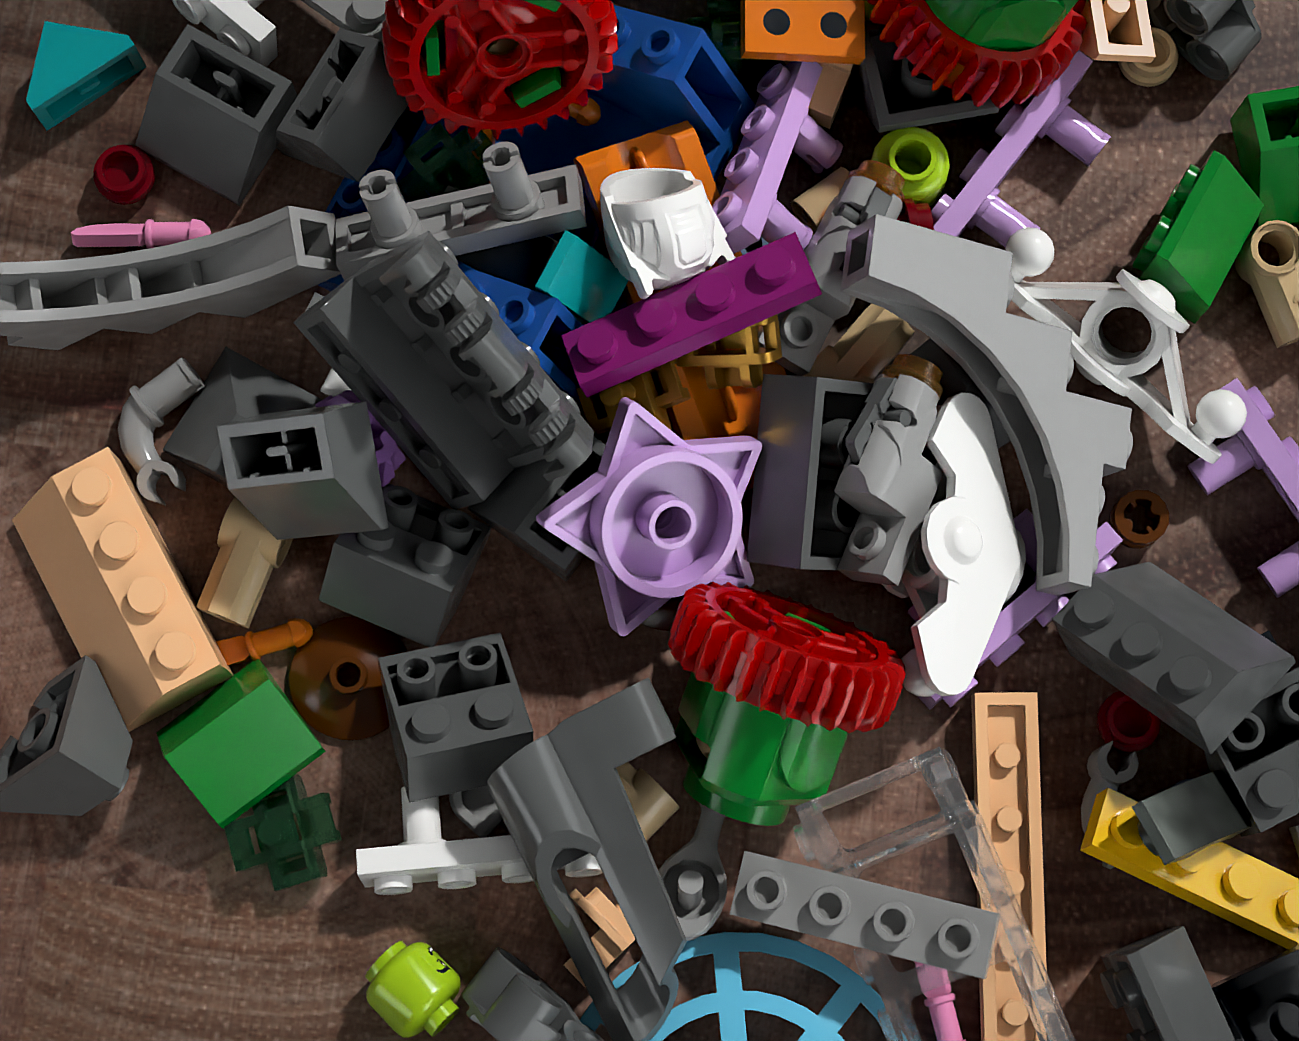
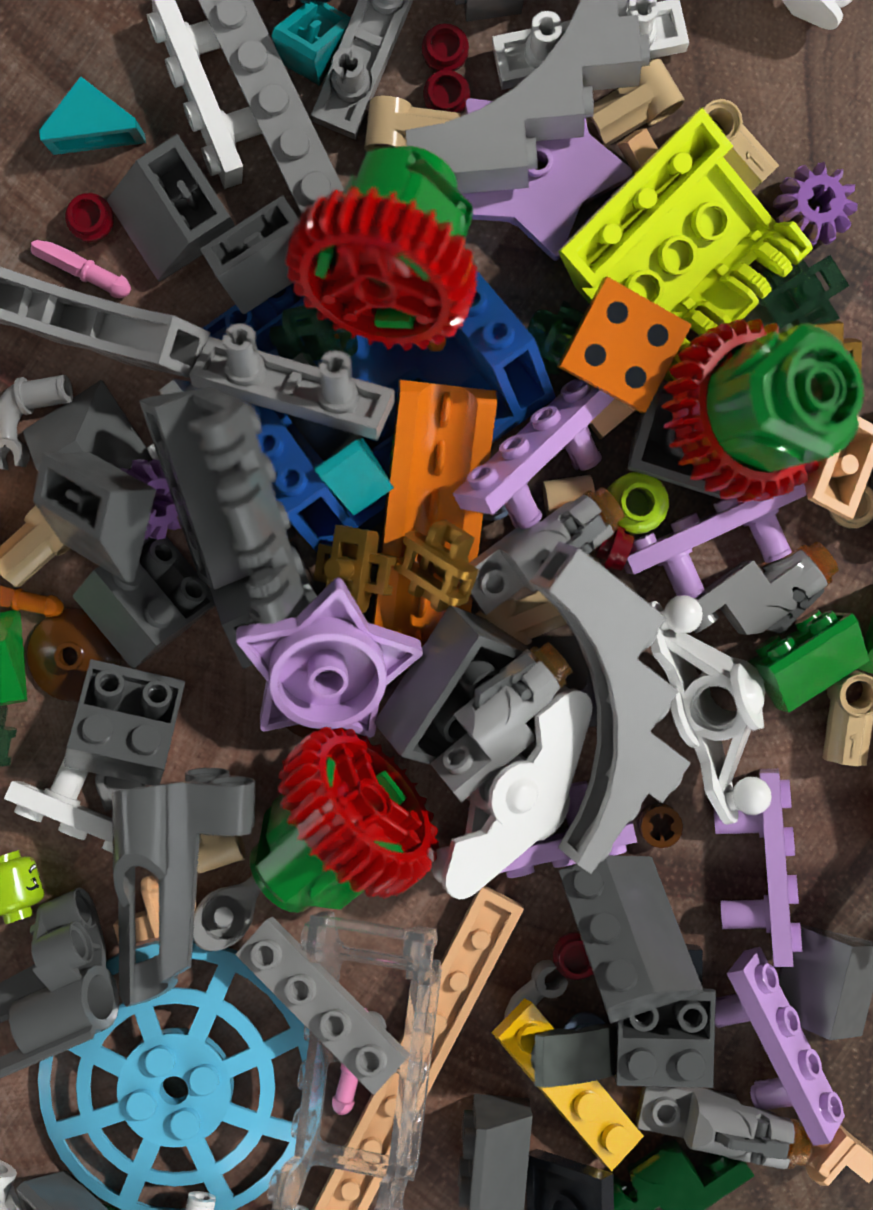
camera: 30 degrees right, 10 degrees up
(660, 227) = (427, 469): white helmet -> none
(691, 315) = (415, 545): magenta plate -> none
(1115, 197) = (769, 599): none -> light grey plate

